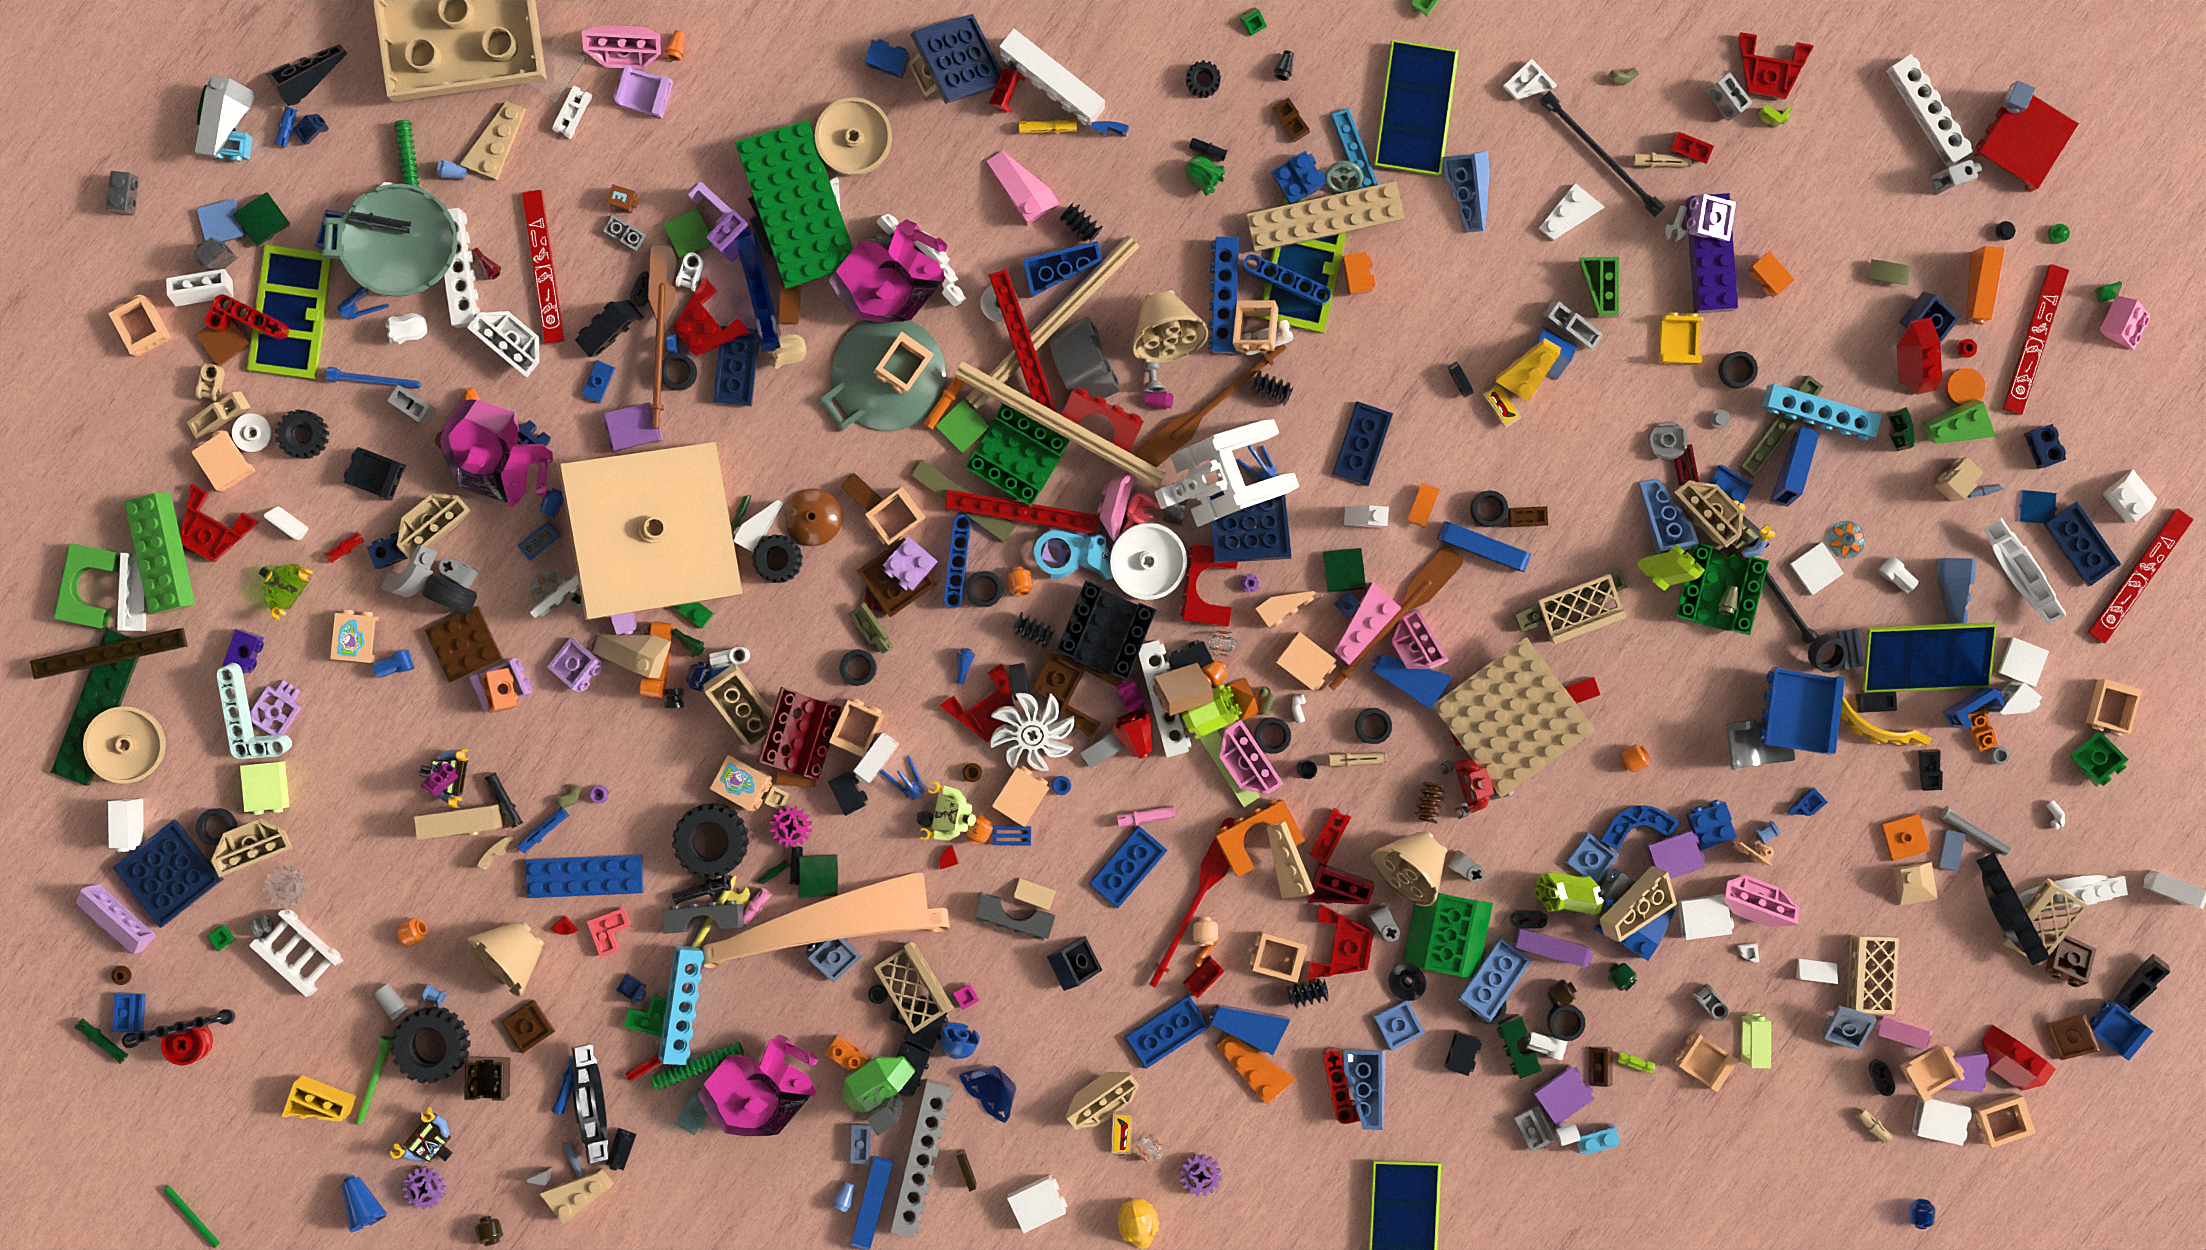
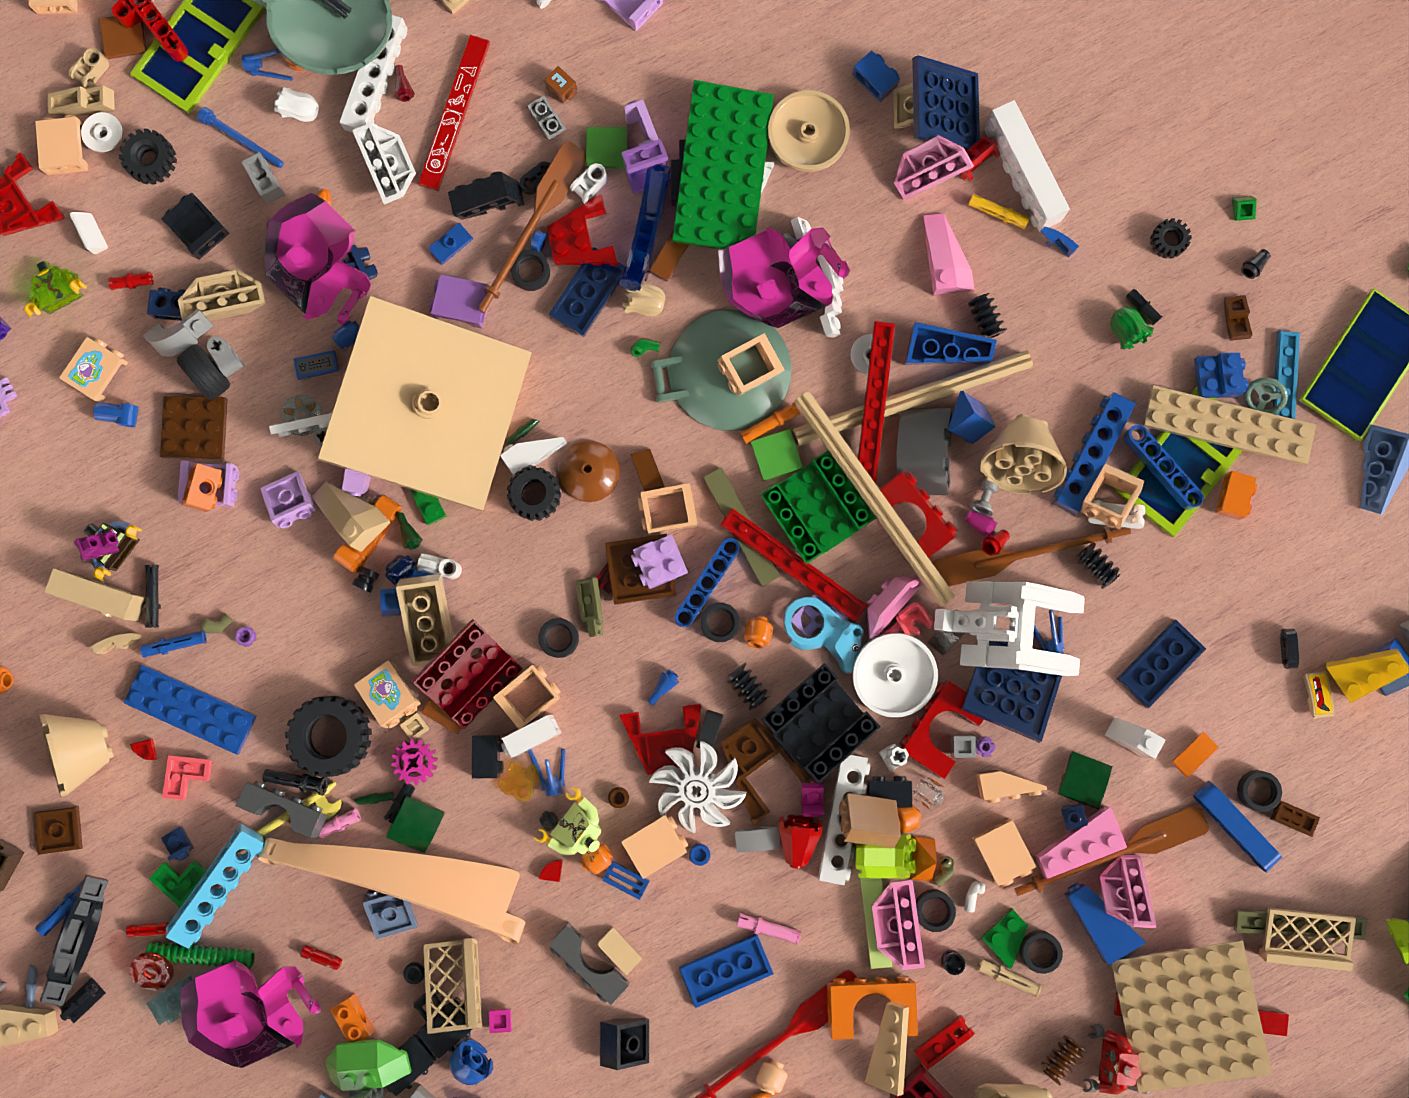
camera: 30 degrees right, 5 degrees down
(665, 1097) = (151, 971): none -> clear red tile
(704, 707) = (389, 603): none -> blue brick
(796, 1019) = (321, 957): none -> red axle
(805, 389) = (644, 345): none -> green arm
(883, 797) = (518, 778): none -> clear yellow plate
(970, 119) = (930, 165): none -> bright pink wedge
(1108, 317) = (970, 419): none -> blue slope
(1178, 411) = (994, 543): none -> red cone
(1179, 628) = (894, 756): none -> white piece
(1231, 592) = (962, 747): none -> light grey brick
(1340, 728) = (1006, 937): none -> green wing

